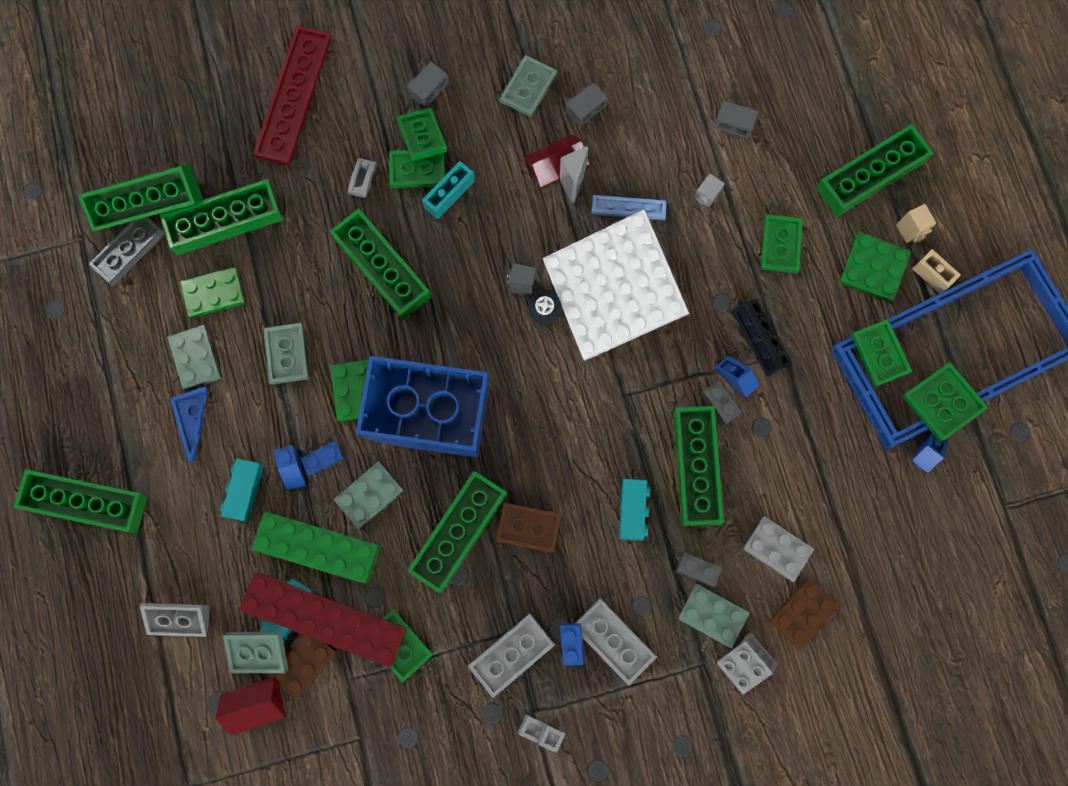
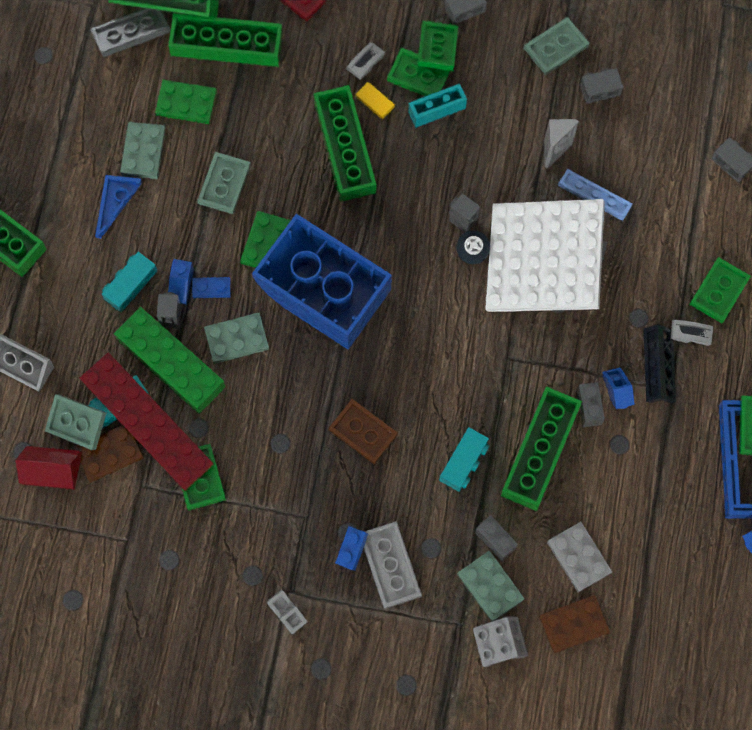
camera: 25 degrees right, 5 degrees down
(293, 501) = (169, 310): none -> dark grey brick
(388, 211) = (375, 100): none -> yellow tile
(457, 532) = (298, 404): green brick -> none
(511, 655) = (293, 532): light grey plate -> none
(547, 160) = (536, 121): dark red slope -> none
(709, 190) = (676, 212): light grey brick -> none
(775, 294) = (691, 332): none -> light grey slope

